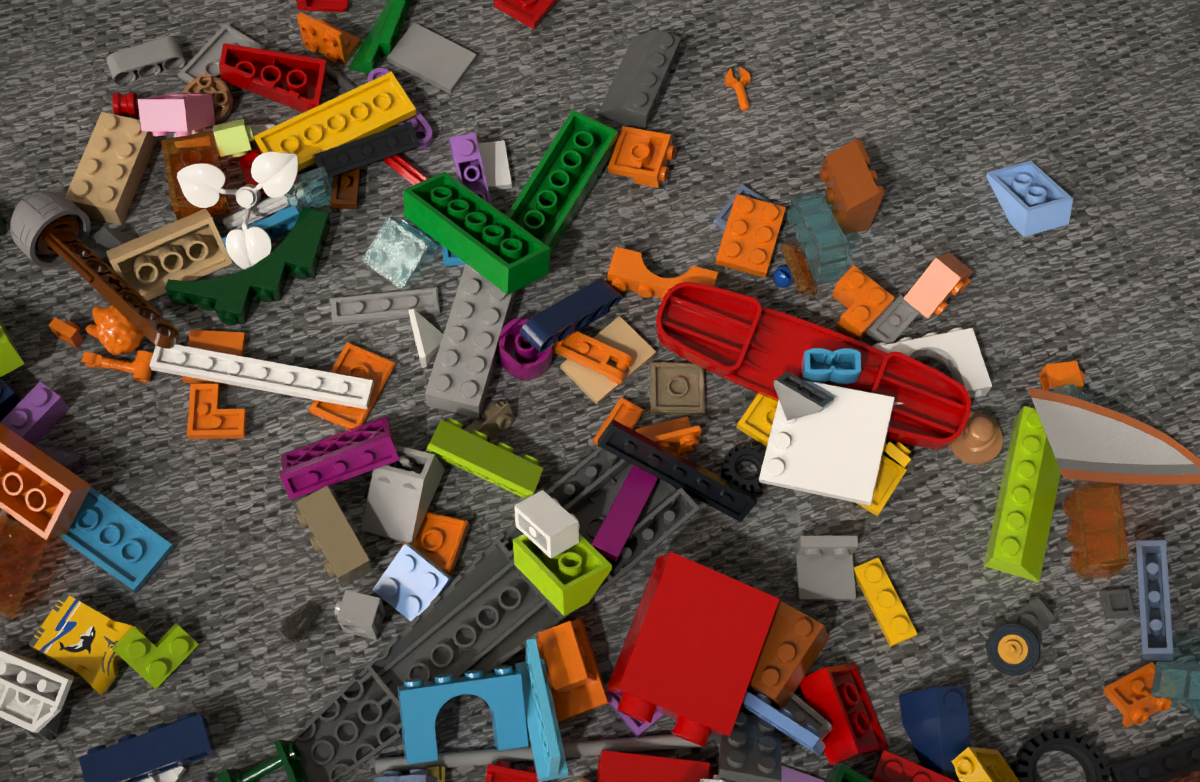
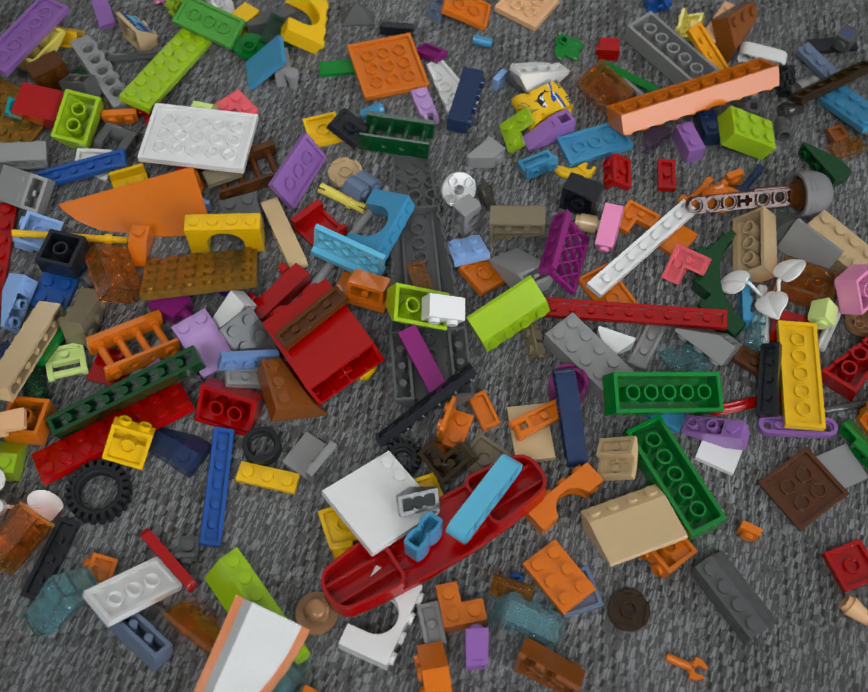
camera: 130 degrees right, 5 degrees down
(65, 742) = (499, 80): none -> light blue tile
(80, 314) = (757, 172): none -> dark blue brick
(111, 416) = (666, 175): none -> red plate
(129, 604) = (547, 132): none -> medium lavender slope
(138, 191) = (809, 245): none -> light grey tile
(147, 479) = (617, 172): none -> red bracket
(181, 533) = (581, 169): none -> yellow piece
(199, 586) = (538, 164): none -> dark azure bracket
(226, 665) = (486, 155): none -> light grey slope
(227, 489) = (581, 195): none -> black brick
(251, 311) = (684, 259): none -> coral plate
(258, 428) = (609, 228): none -> bright pink brick
(262, 466) = (587, 222): none -> tan brick
(320, 660) = (457, 187): none -> white plate
(357, 230) = (717, 345): none -> light grey slope
(373, 331) = (638, 313): none -> red plate
(476, 68) = (803, 489): none -> reddish brown plate
(502, 607) = (419, 275): none -> clear orange tile
(563, 95) = (748, 531): none -> orange plate
(579, 248) = (617, 458): none -> tan slope
(648, 189) = (632, 525): none -> tan slope
(690, 657) = (311, 317): none -> reddish brown plate
(722, 410) = (447, 465): none -> dark brown brick
(734, 165) = (622, 612): none -> dark brown tile
(745, 328) = (484, 498): none -> medium azure beam
(847, 653) = (262, 432): none -> black tyre
(887, 260) = (476, 647): none -> medium lavender slope
(941, 648) = (216, 487): none -> blue plate
(1013, 649) = (181, 523): black wheel -> none
(1059, 632) = (169, 560): none -> red beam
(1128, 626) = (132, 591): none -> white plate

